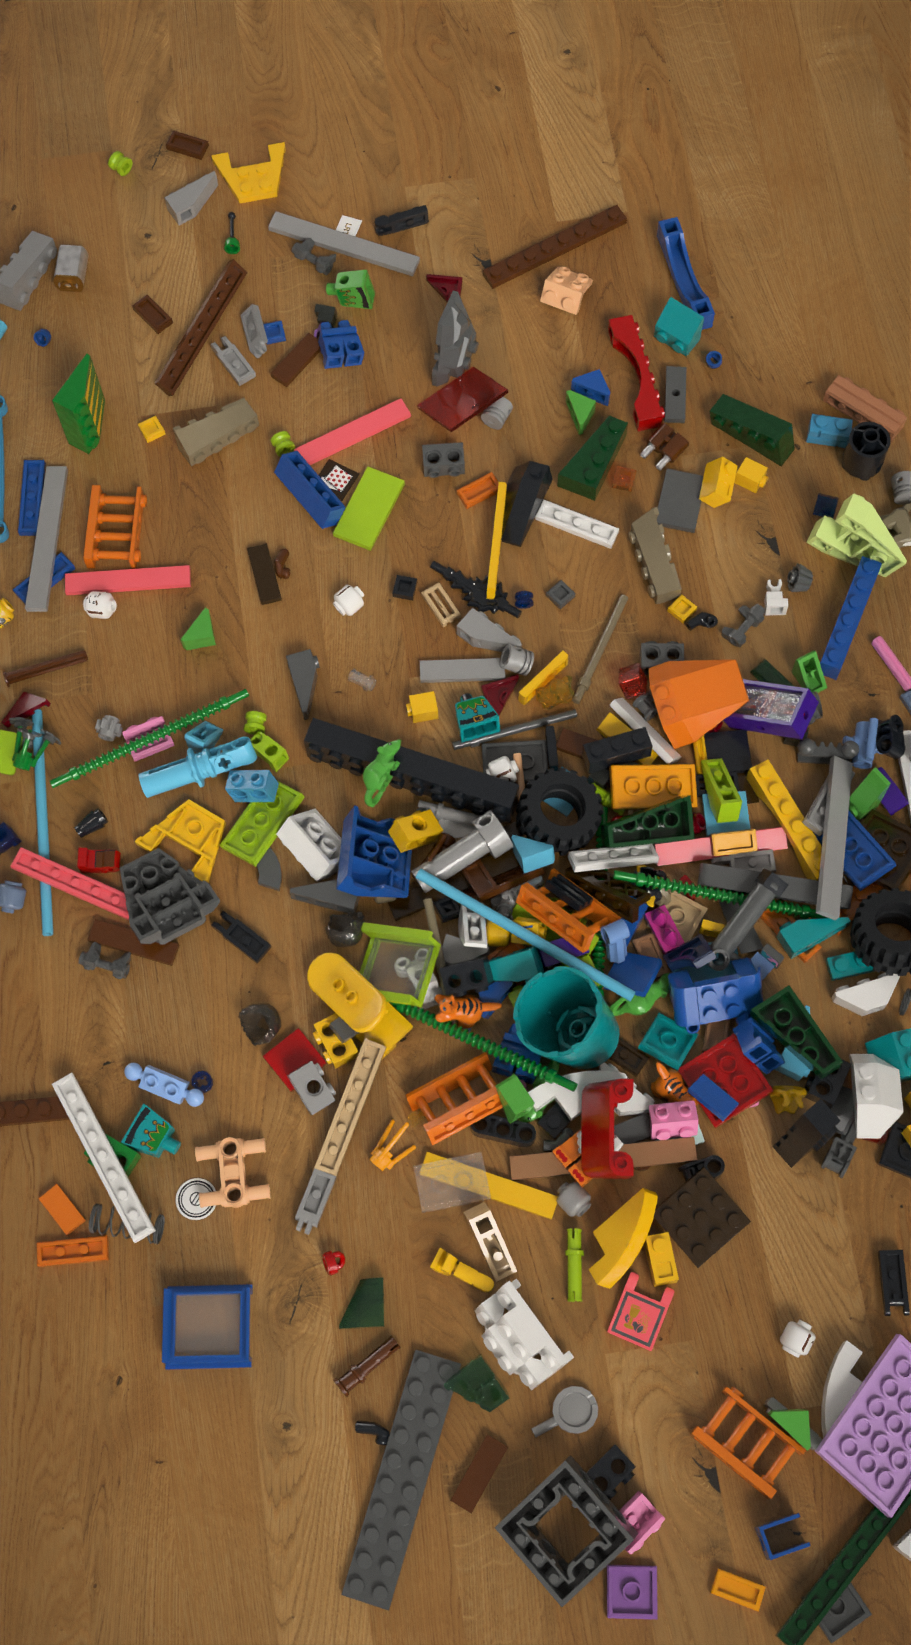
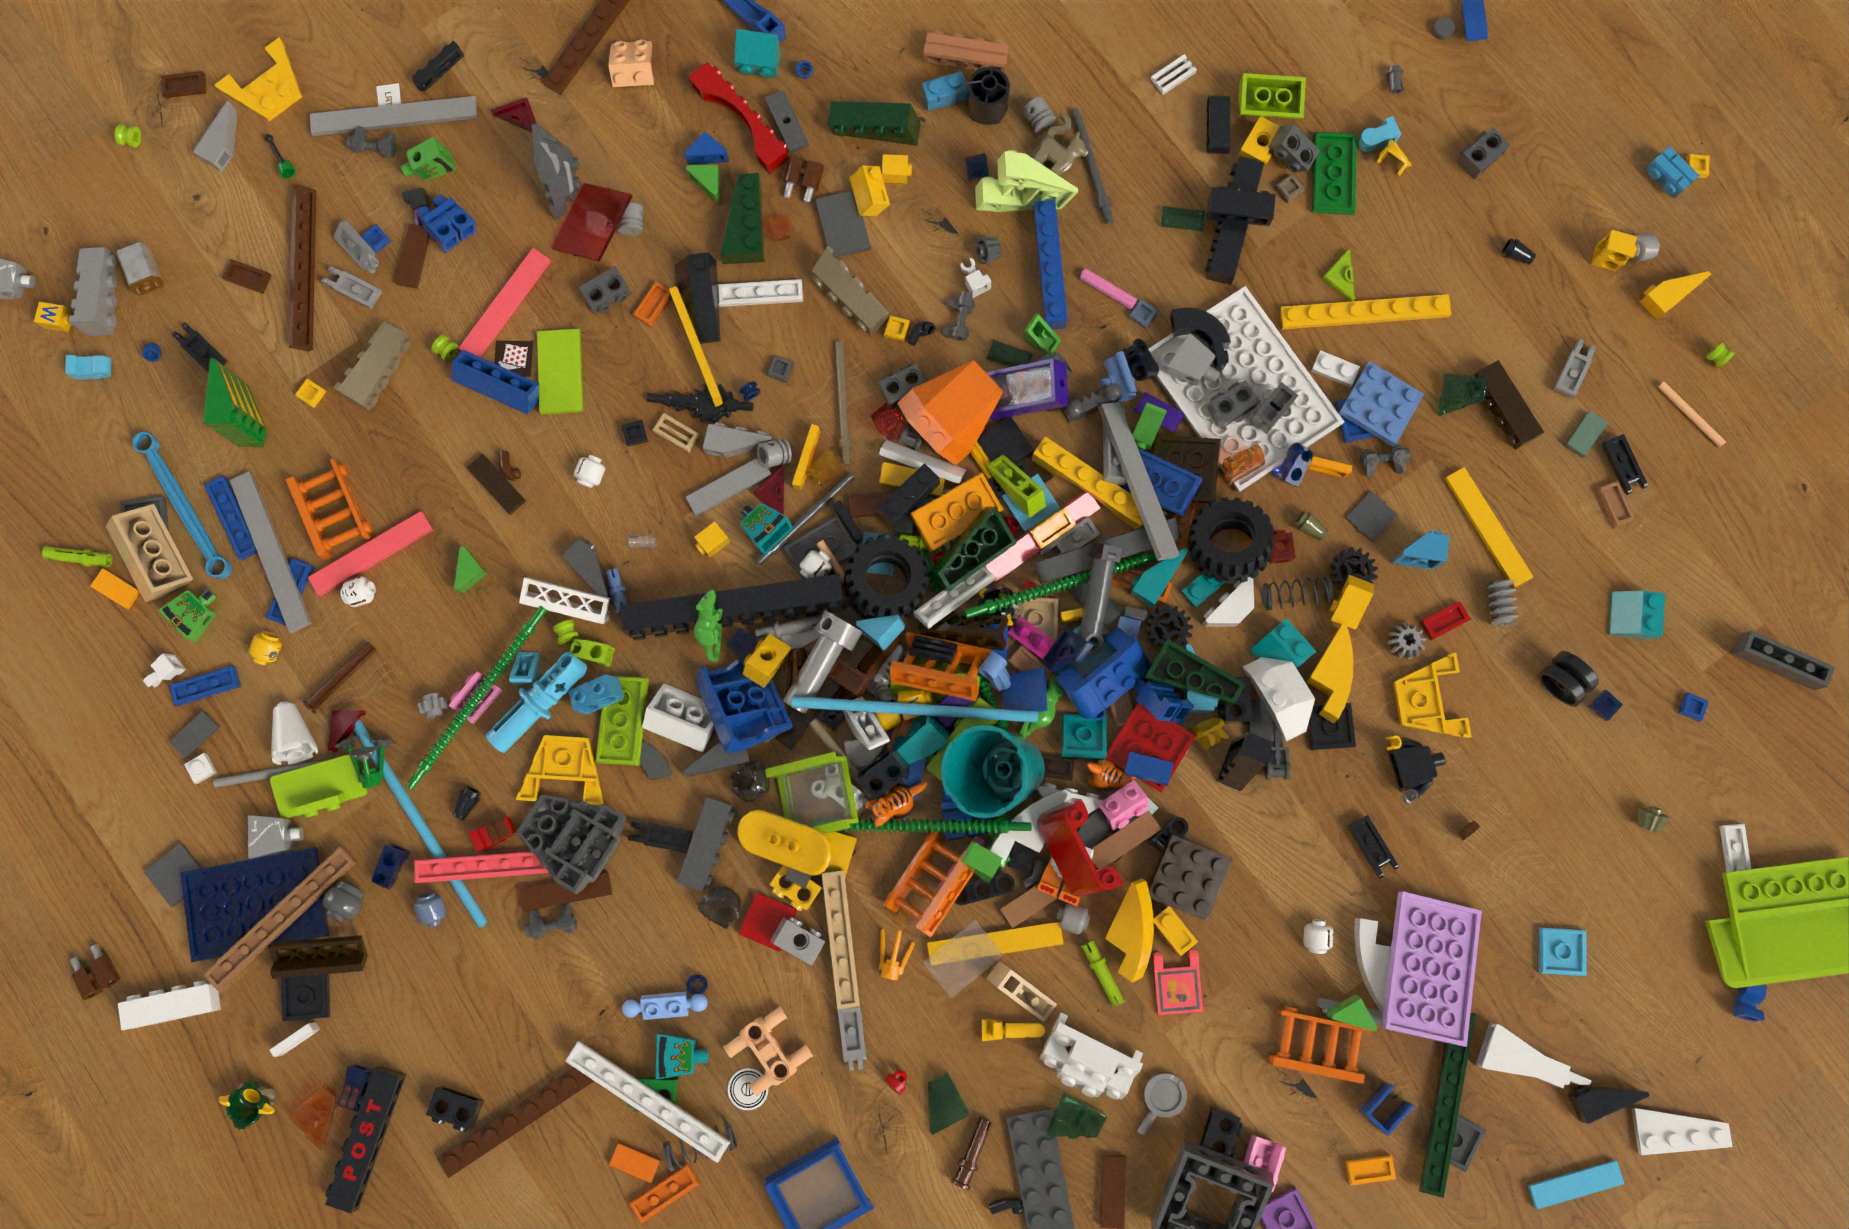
camera: 30 degrees left, 10 degrees up
(80, 347) = (199, 347): none -> black hinge
(266, 701) = (563, 605): none -> white fence
(276, 963) = (705, 845): none -> dark grey brick
(318, 709) = (616, 590): none -> medium blue pin
(402, 806) = (742, 643): none -> clear blue plate
(791, 977) = (1160, 626): none -> black gear

